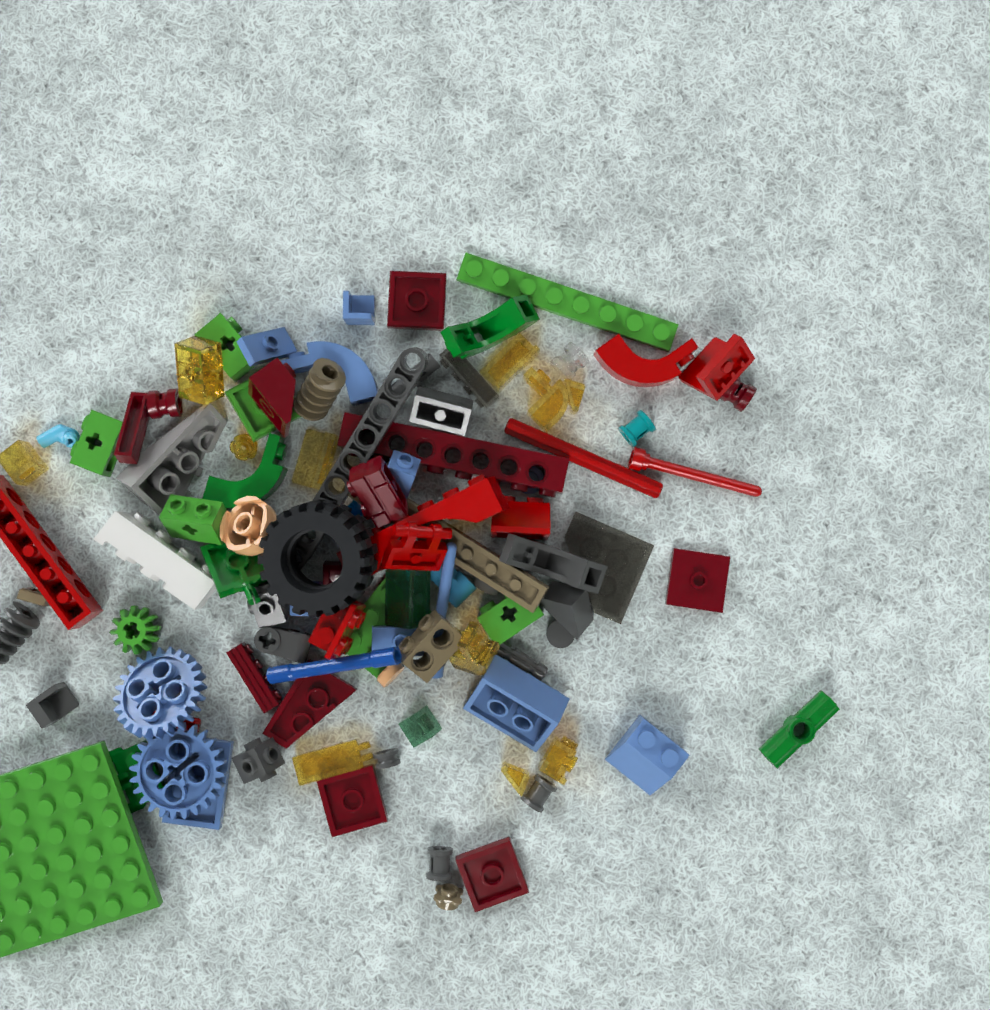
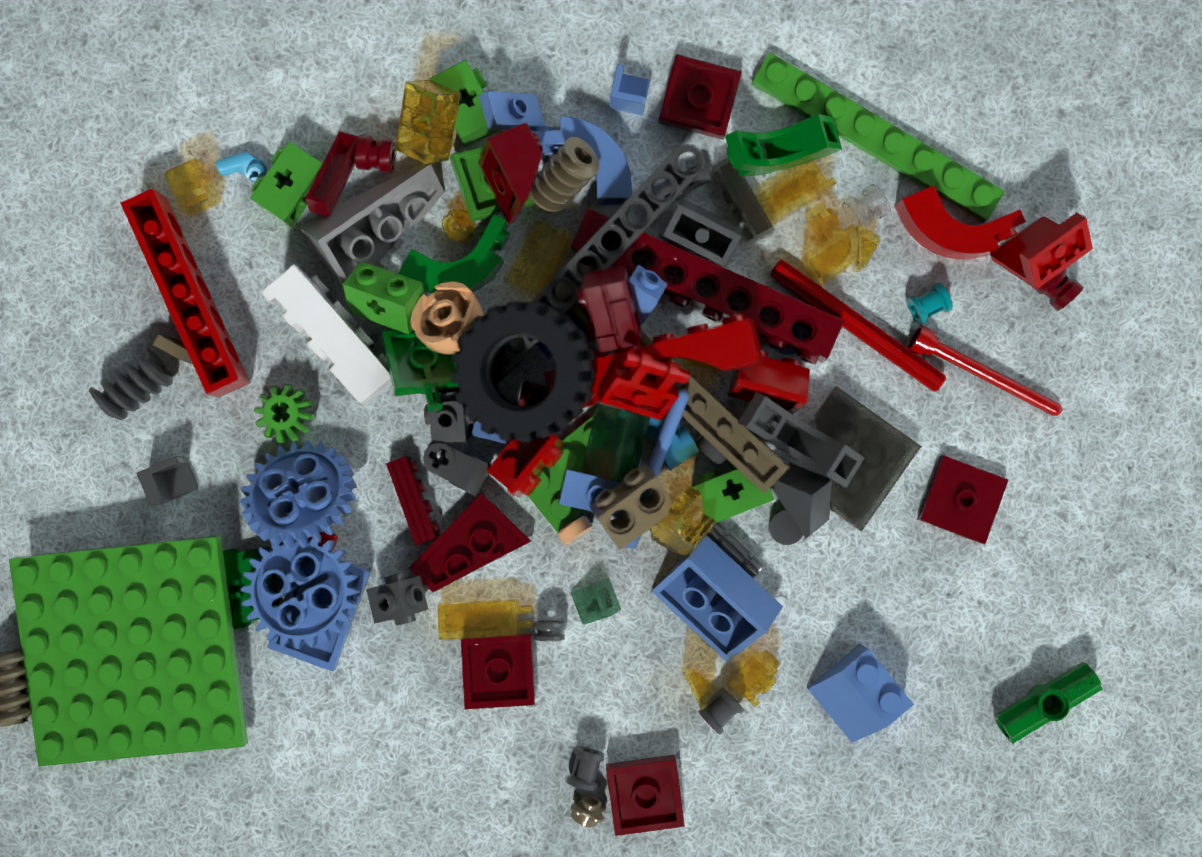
camera: 10 degrees right, 0 degrees up
(375, 659) = (566, 506): blue piece -> none

